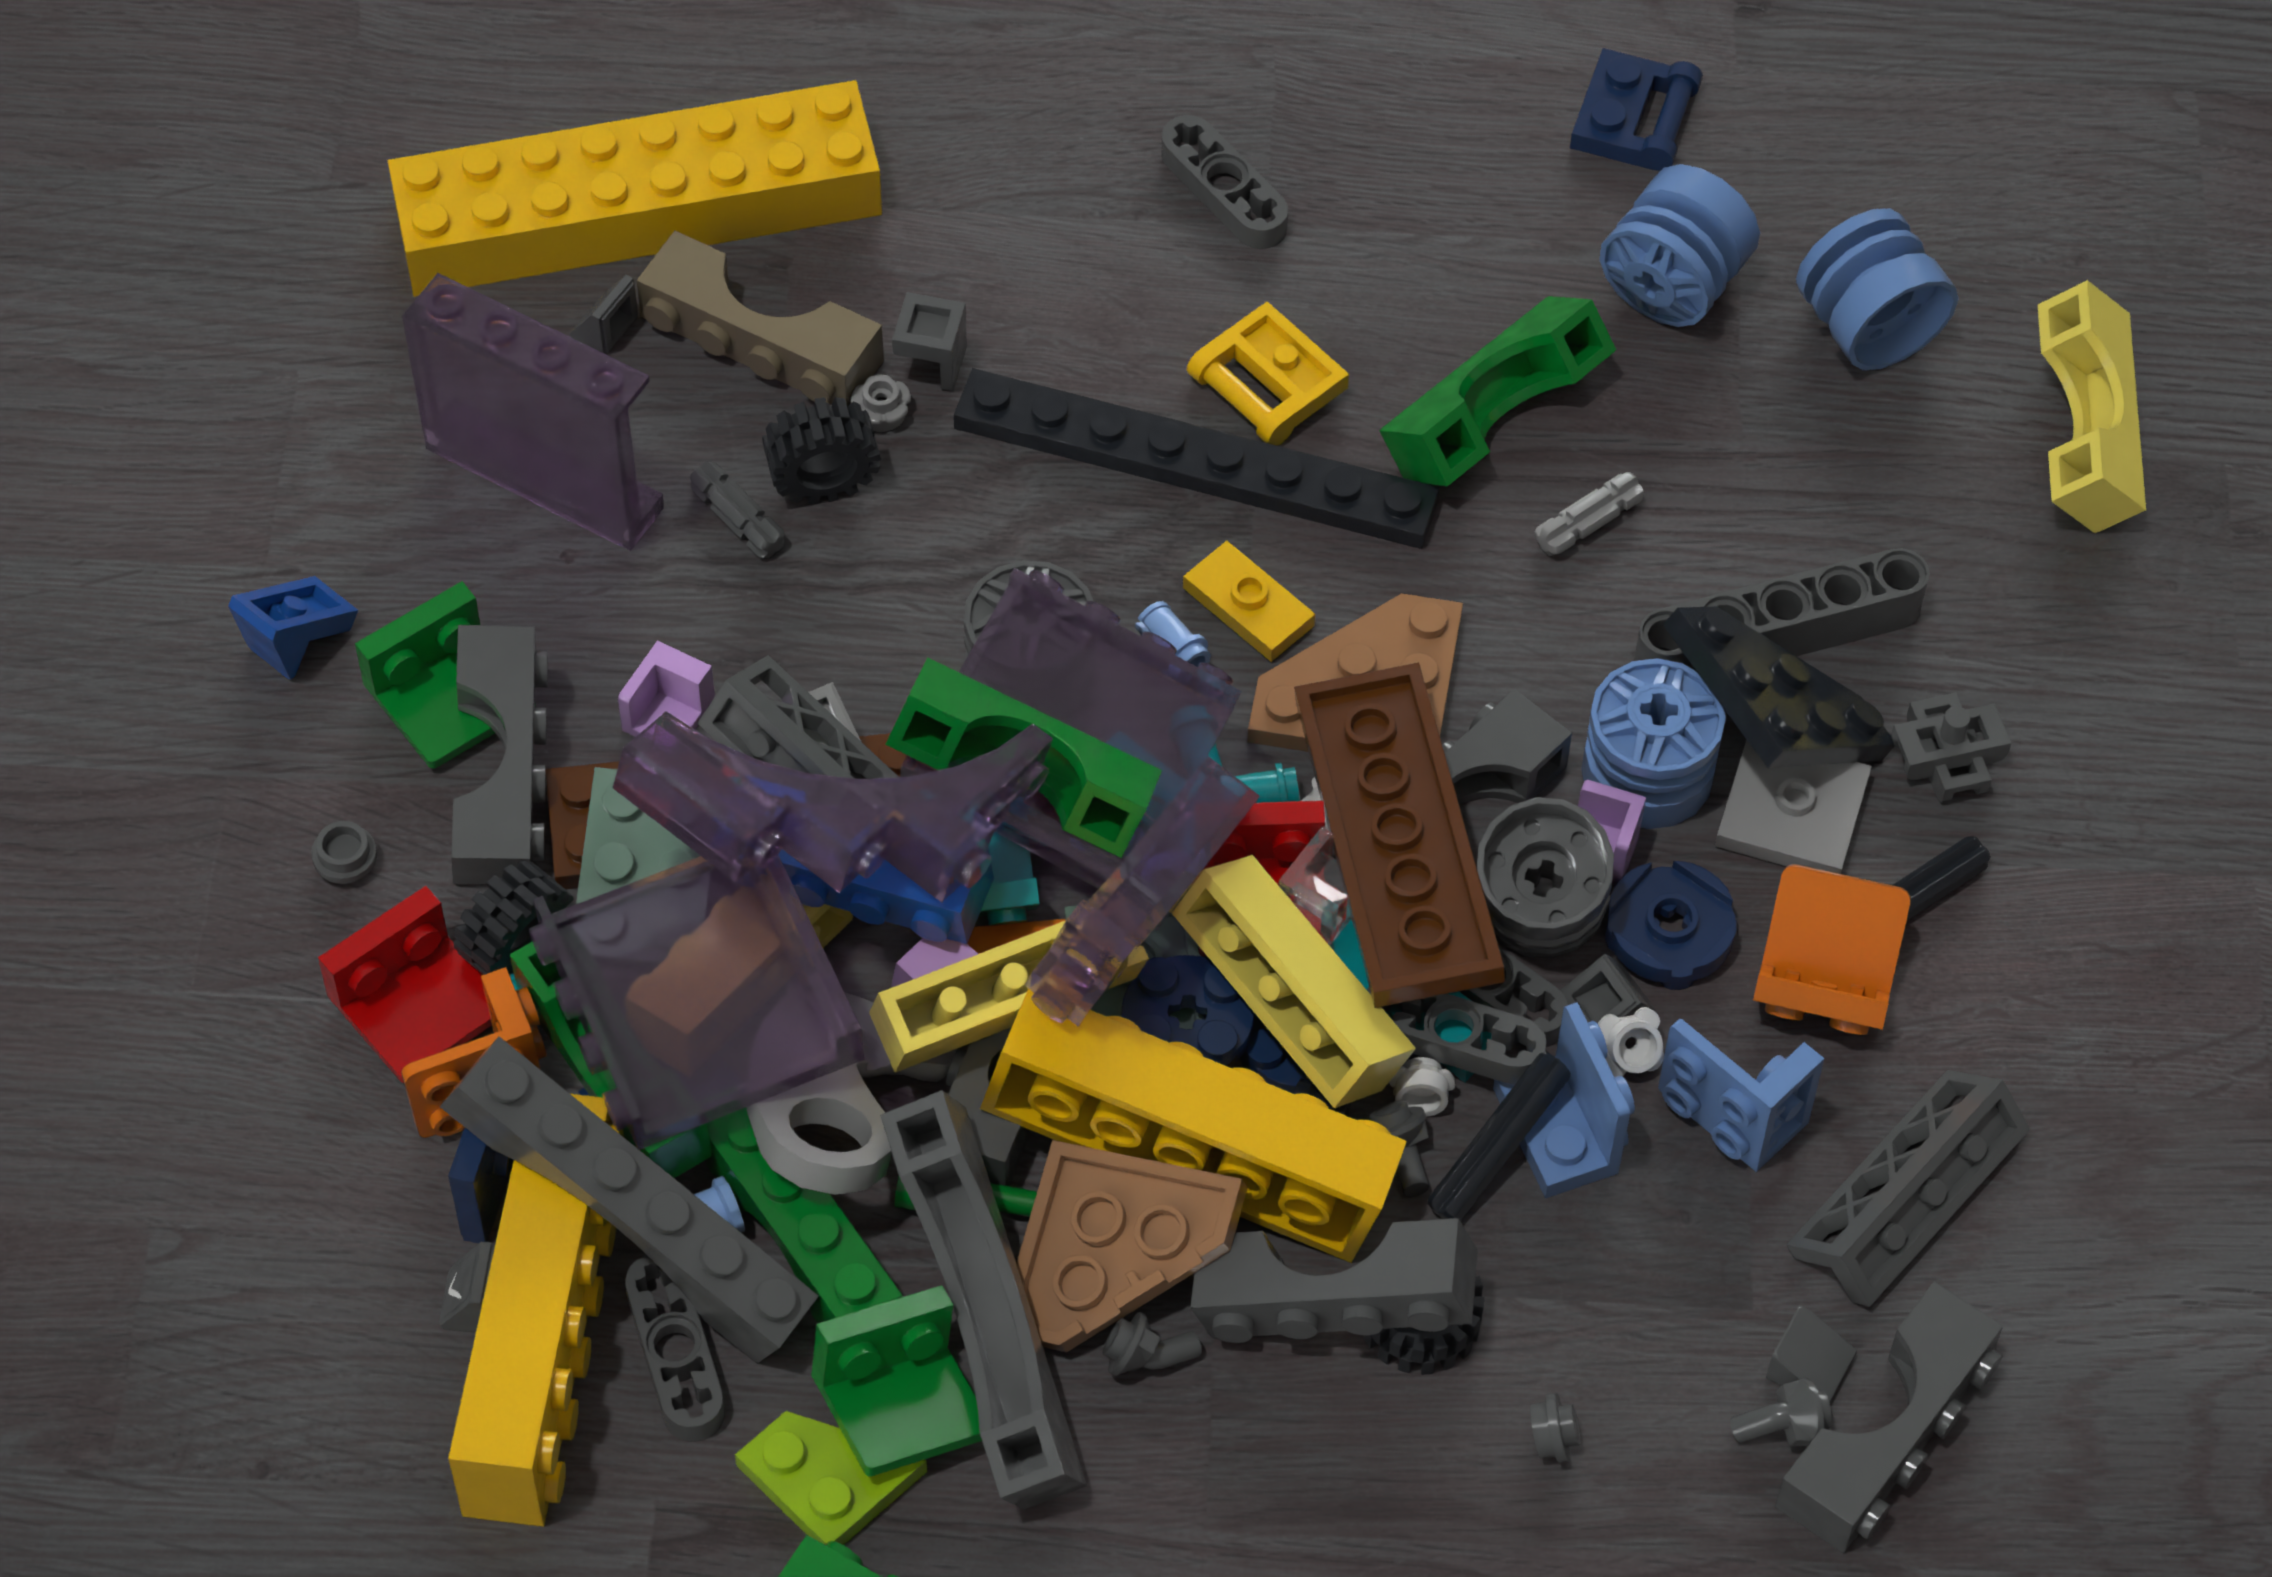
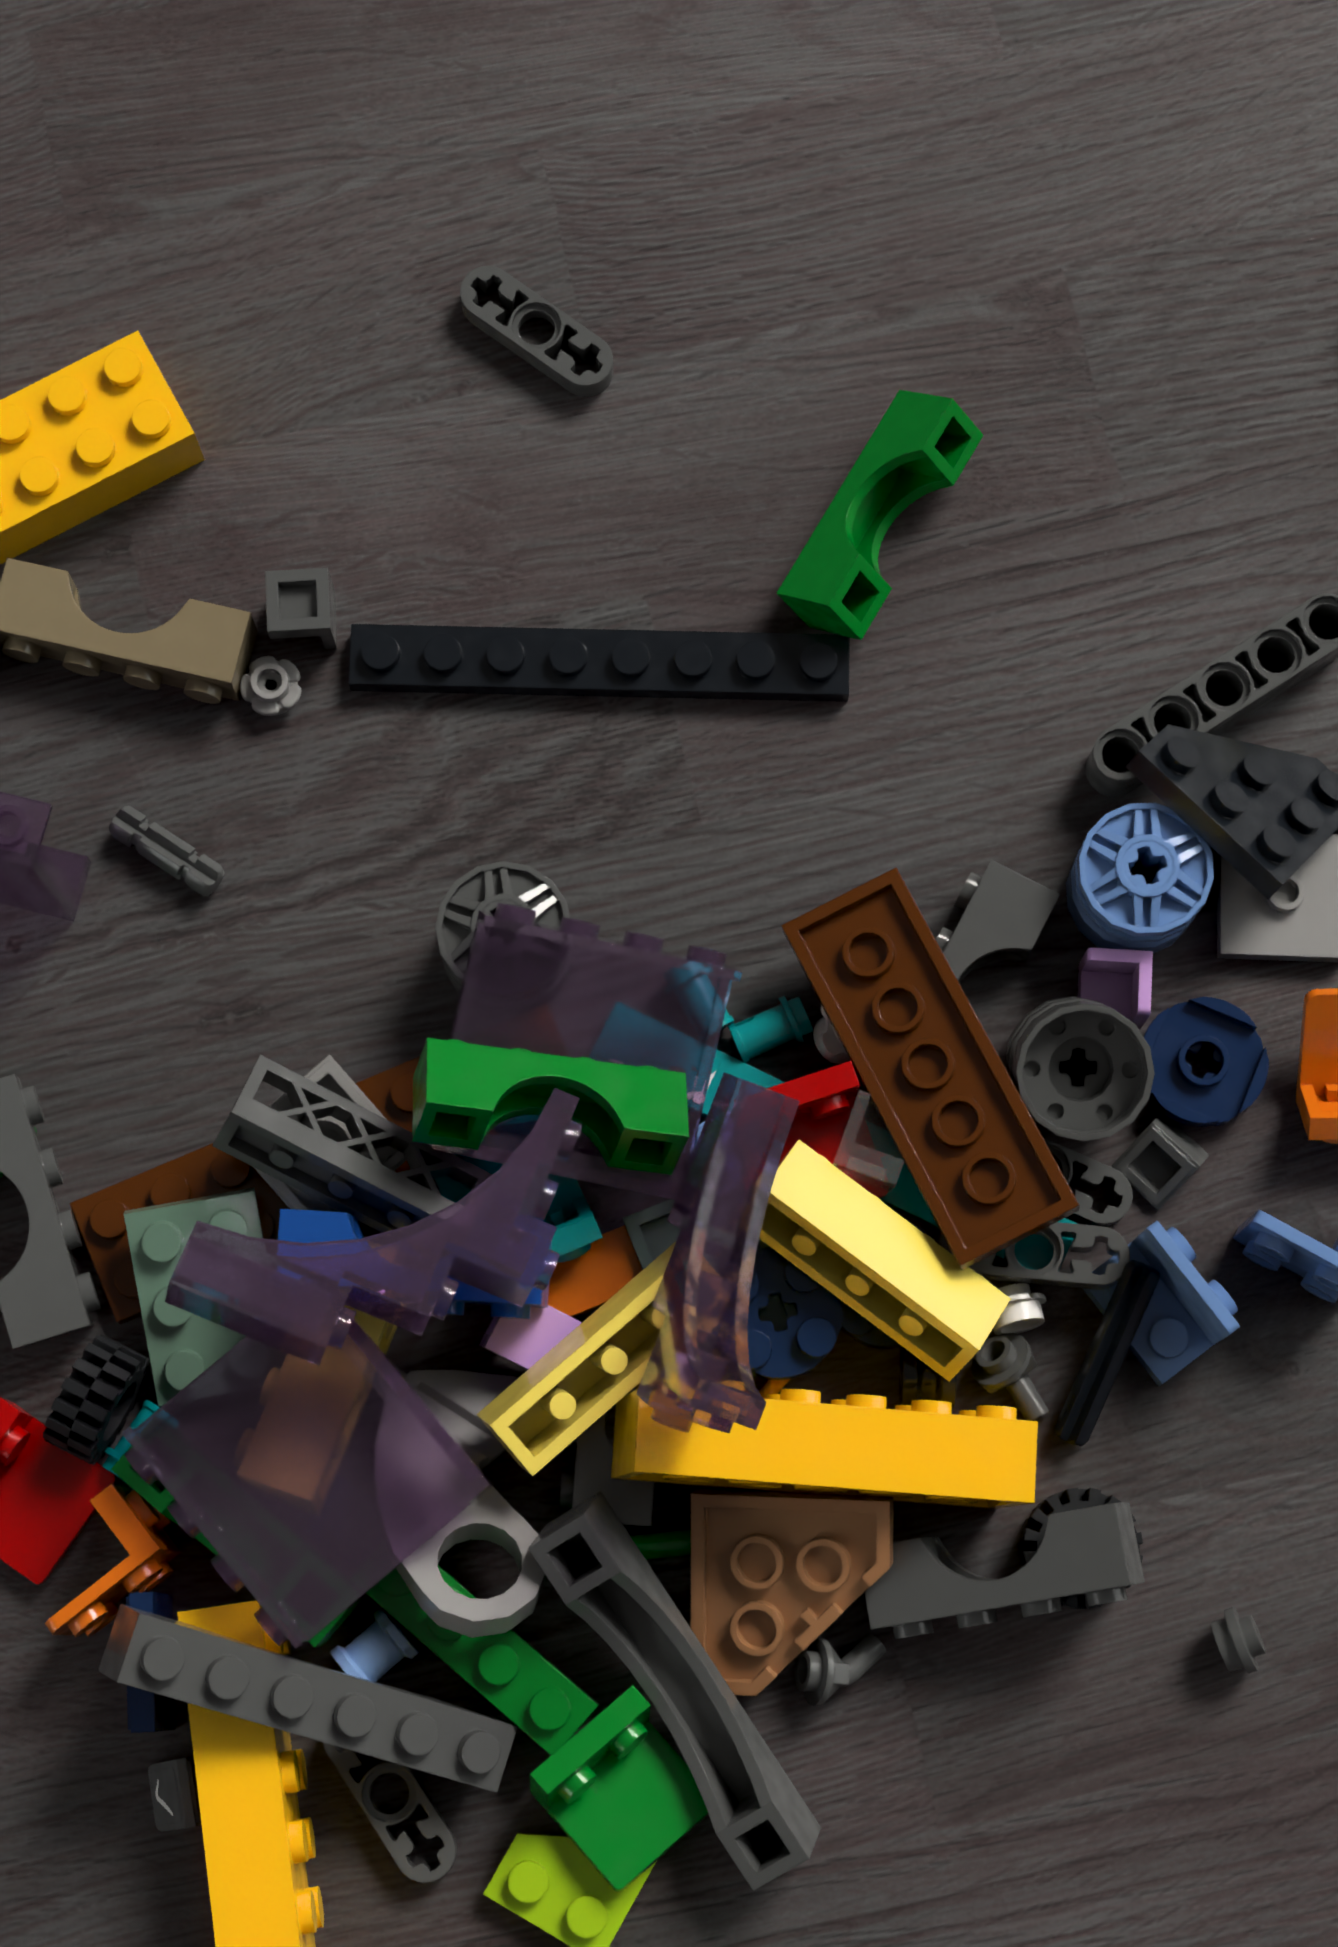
camera: 15 degrees left, 20 degrees up
(664, 683) = (164, 1091): lavender panel -> none
(821, 450) = (233, 774): black tyre -> none
(1164, 623) = (639, 882): light blue pin -> none
(1249, 601) = (698, 813): yellow plate -> none
(1281, 361) = (657, 532): yellow plate -> none
(1390, 636) = (845, 840): medium nougat plate -> none
(1589, 513) = (1001, 622): light grey axle -> none
(1617, 104) = (901, 133): dark blue plate -> none
(1648, 1049) = (1200, 1207): white plate -> none
(1679, 245) = (1016, 299): medium blue wheel -> none
(1876, 289) = (1211, 288): medium blue wheel -> none

